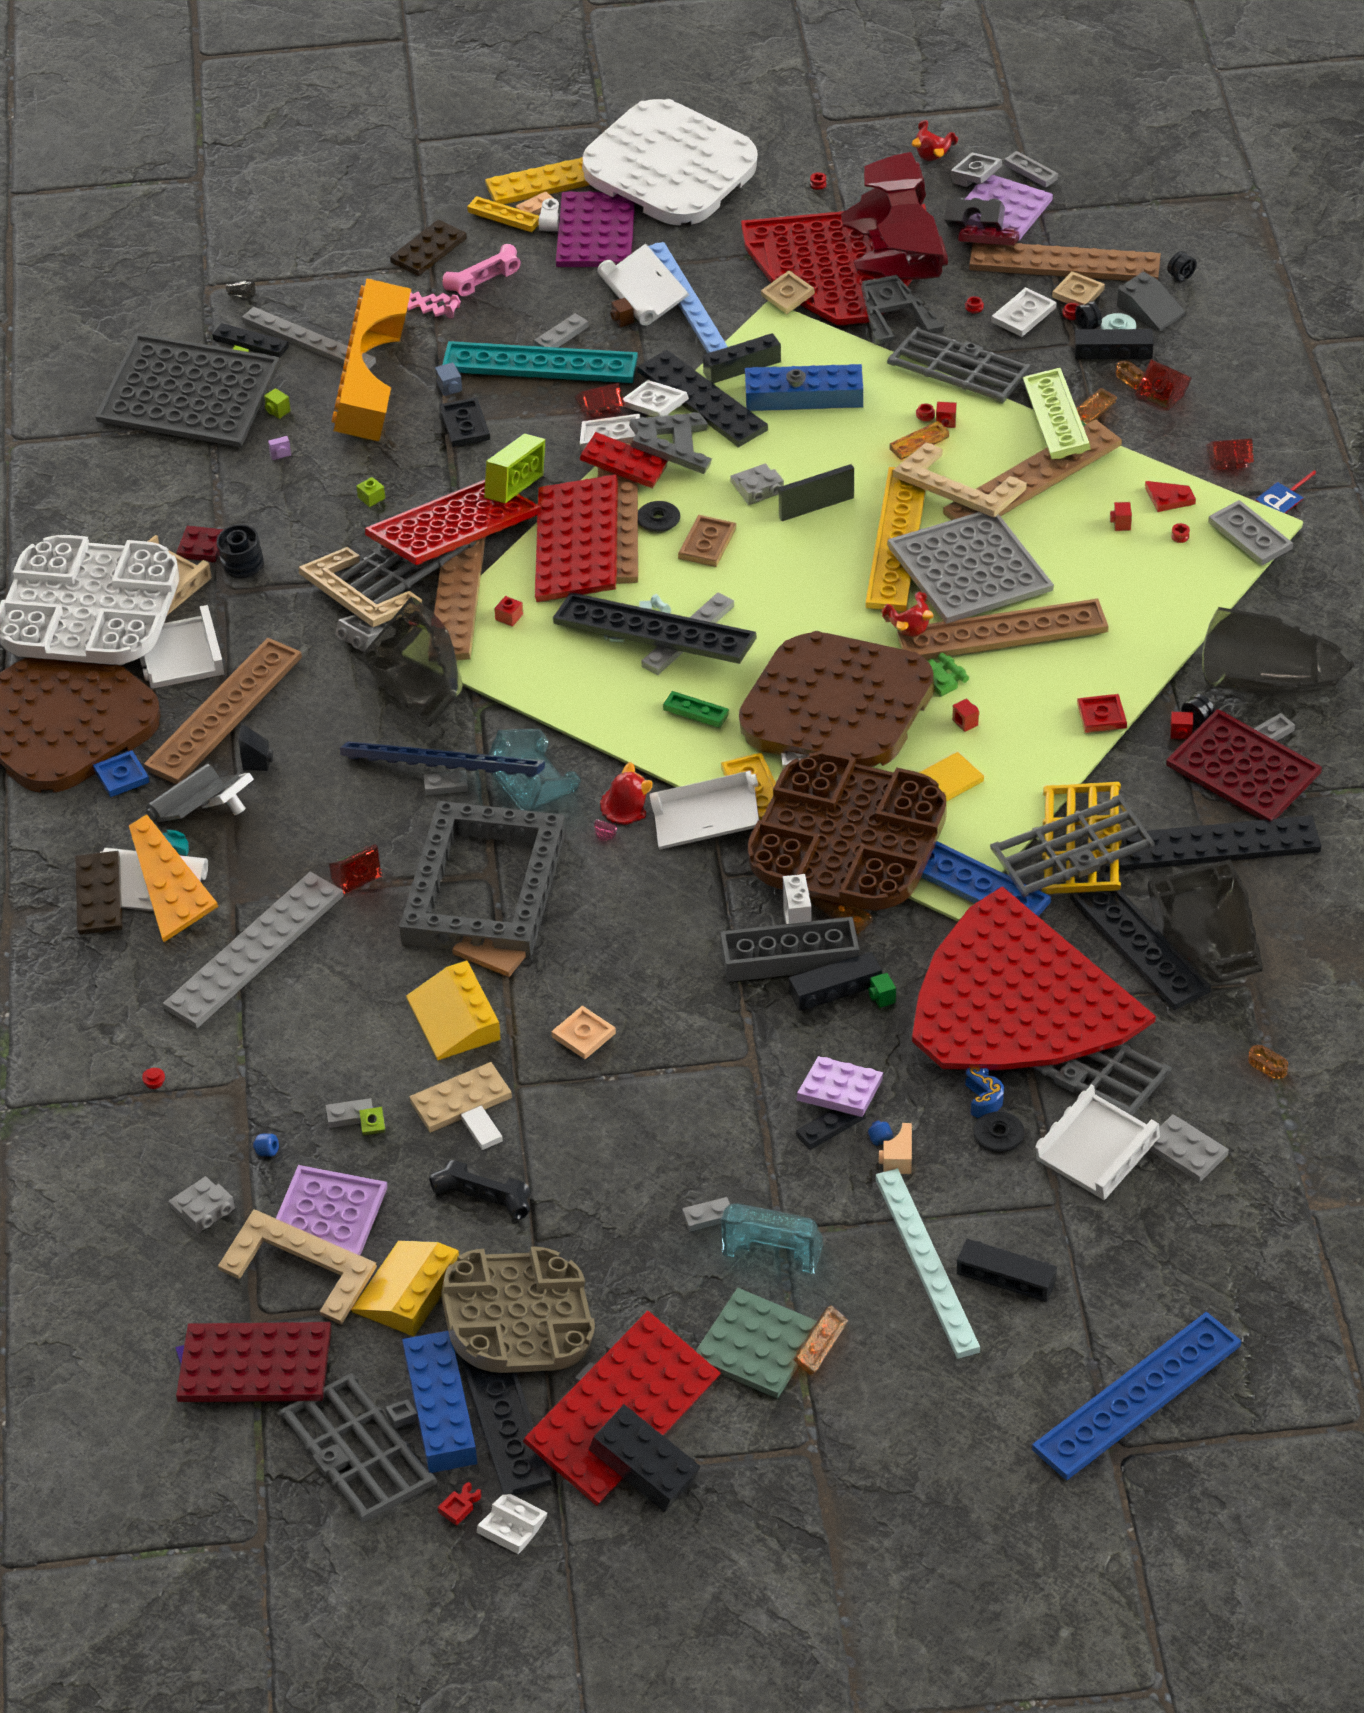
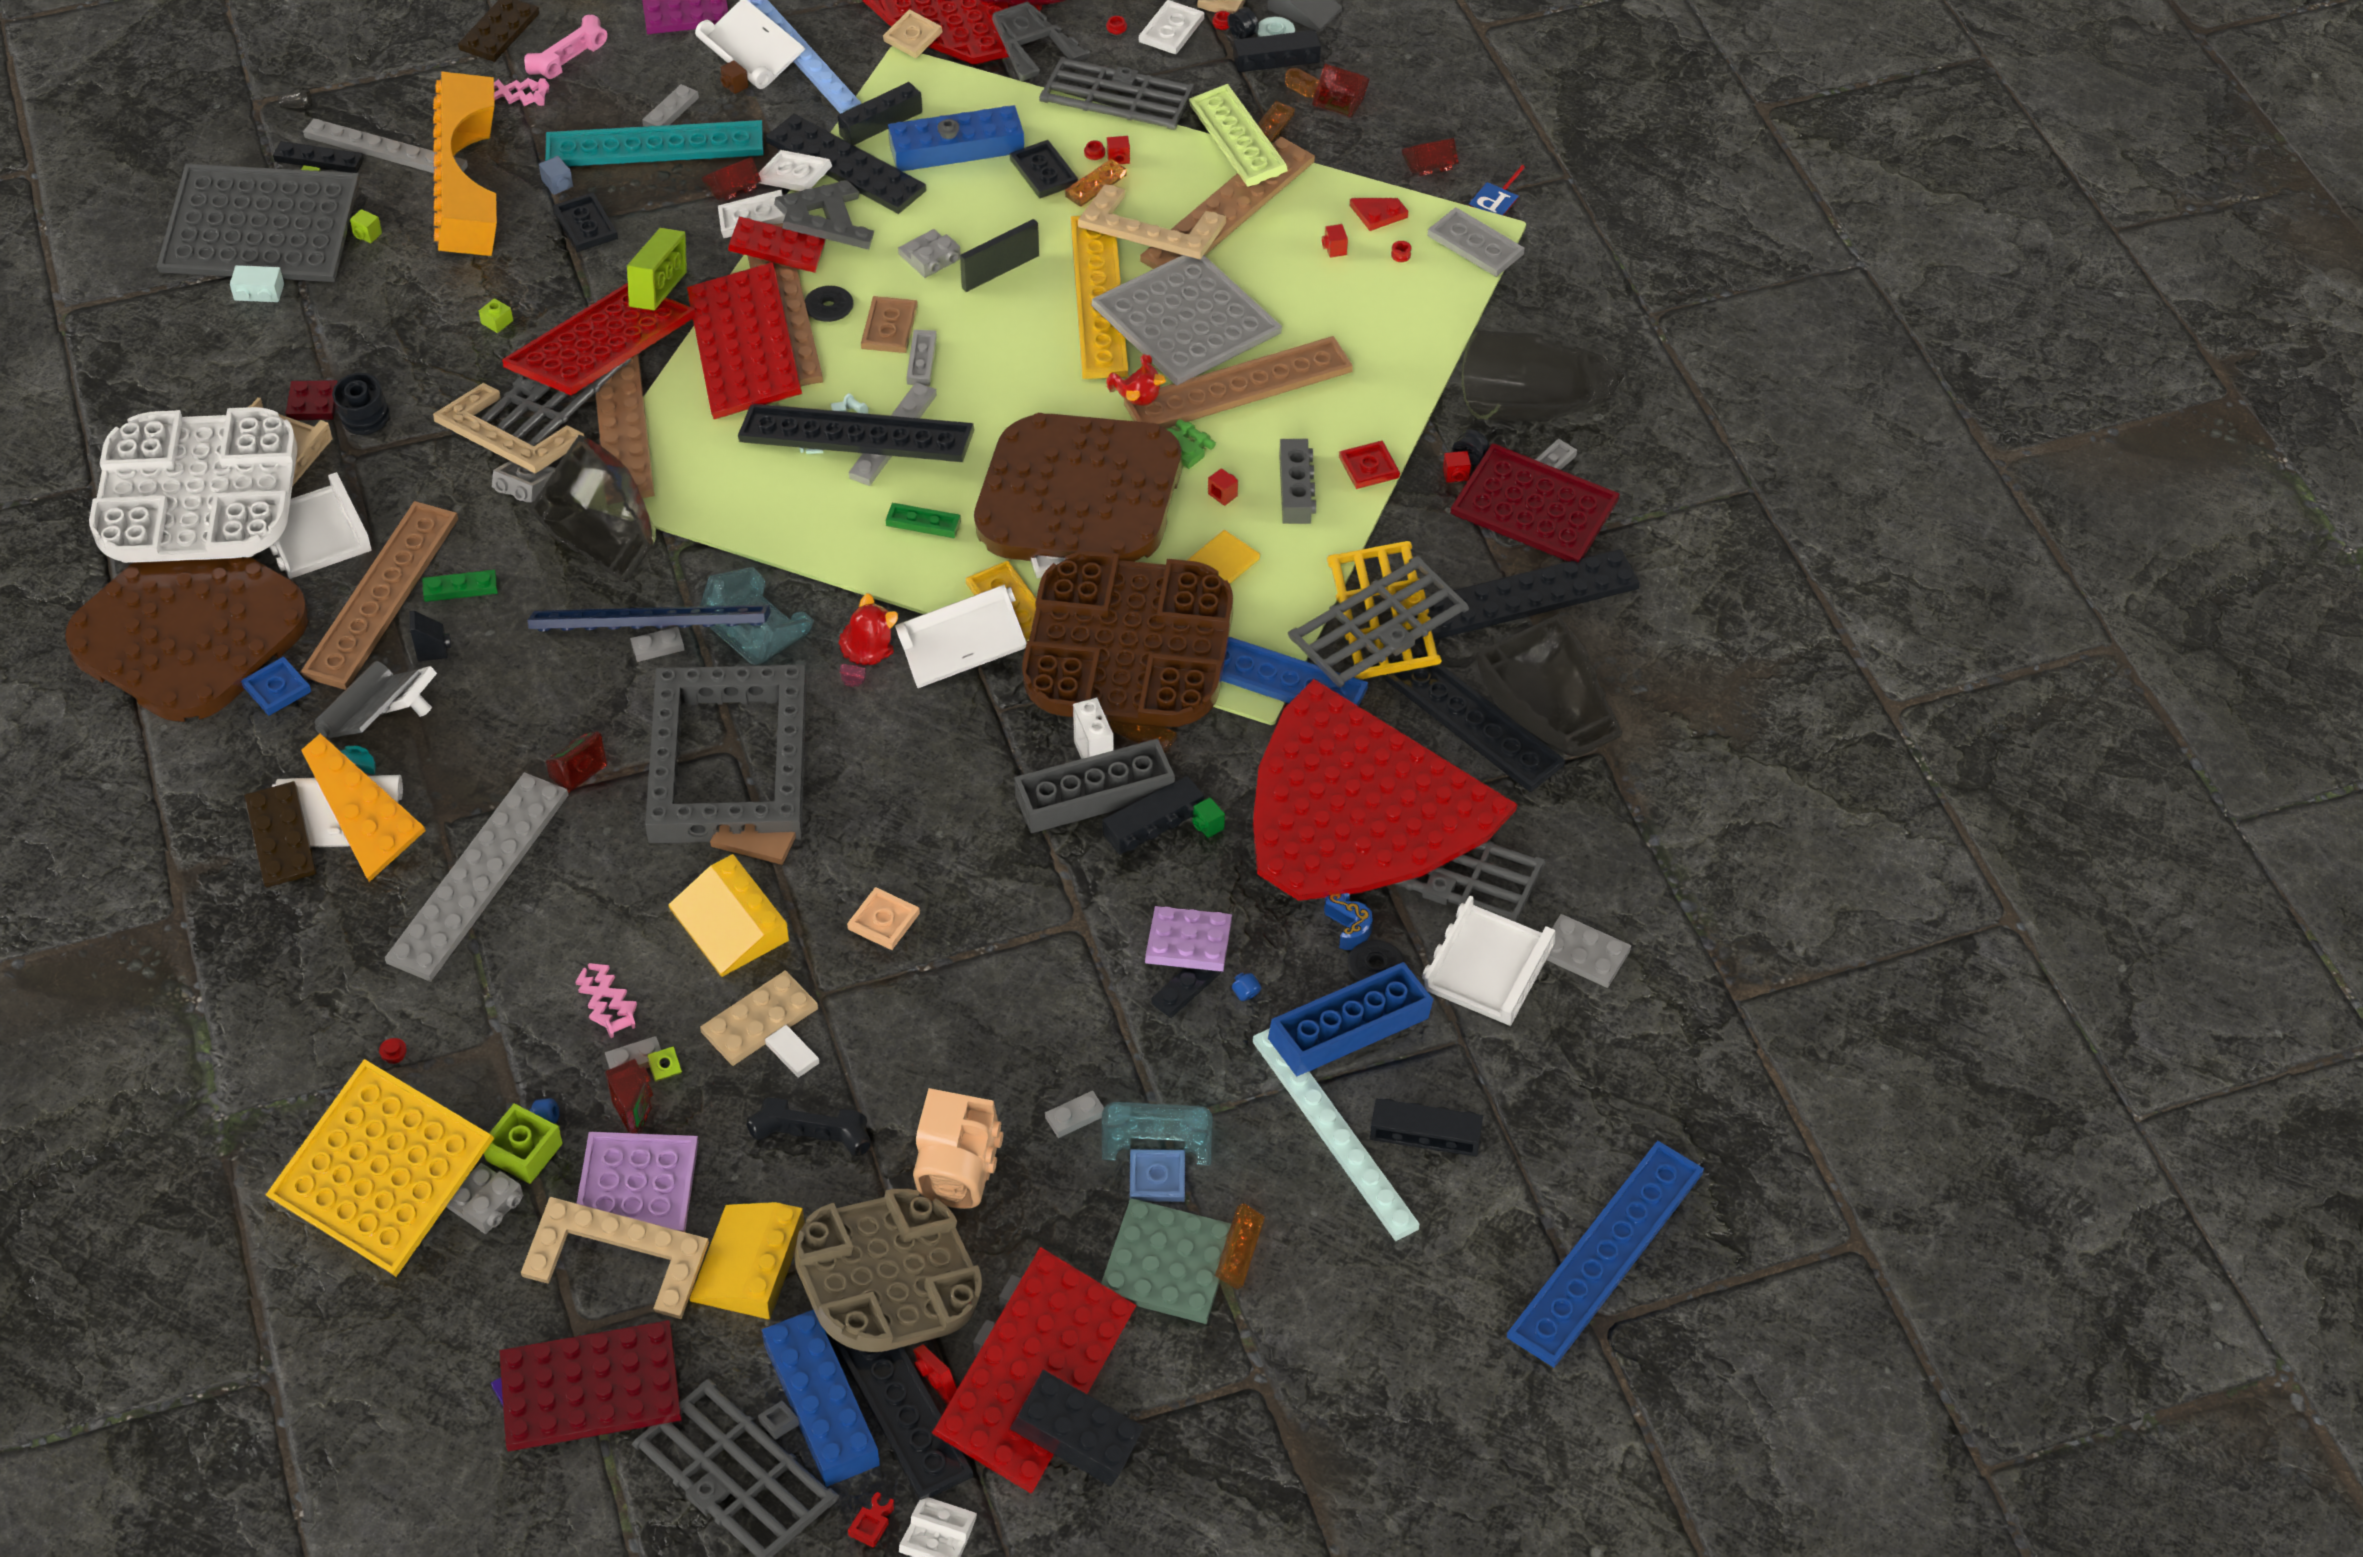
camera: 15 degrees left, 5 degrees up
(122, 1165) = (380, 1167): none -> yellow plate
(175, 440) = (257, 283): none -> light aqua brick
(241, 1165) = (523, 1143): none -> lime brick
(279, 448) = (379, 277): lavender plate -> none
(290, 712) = (459, 585): none -> green plate
(338, 1139) = (630, 1094): none -> clear red slope
(339, 1048) = (625, 1008): none -> bright pink piece
(508, 611) = (685, 434): red plate -> none
(539, 1396) = (936, 1373): none -> red wing
(595, 1219) = (956, 1148): none -> light nougat brick
(728, 571) = (921, 357): none -> light grey plate
(765, 1273) = (1157, 1175): none -> medium blue tile
(875, 422) = (1043, 168): none -> black plate
(898, 1151) = (1271, 1003): light nougat arch -> none
(961, 1170) = (1350, 1019): none -> blue brick
(1031, 718) = (1295, 481): none -> dark grey brick
(1268, 1061) = (1646, 837): clear orange beam -> none

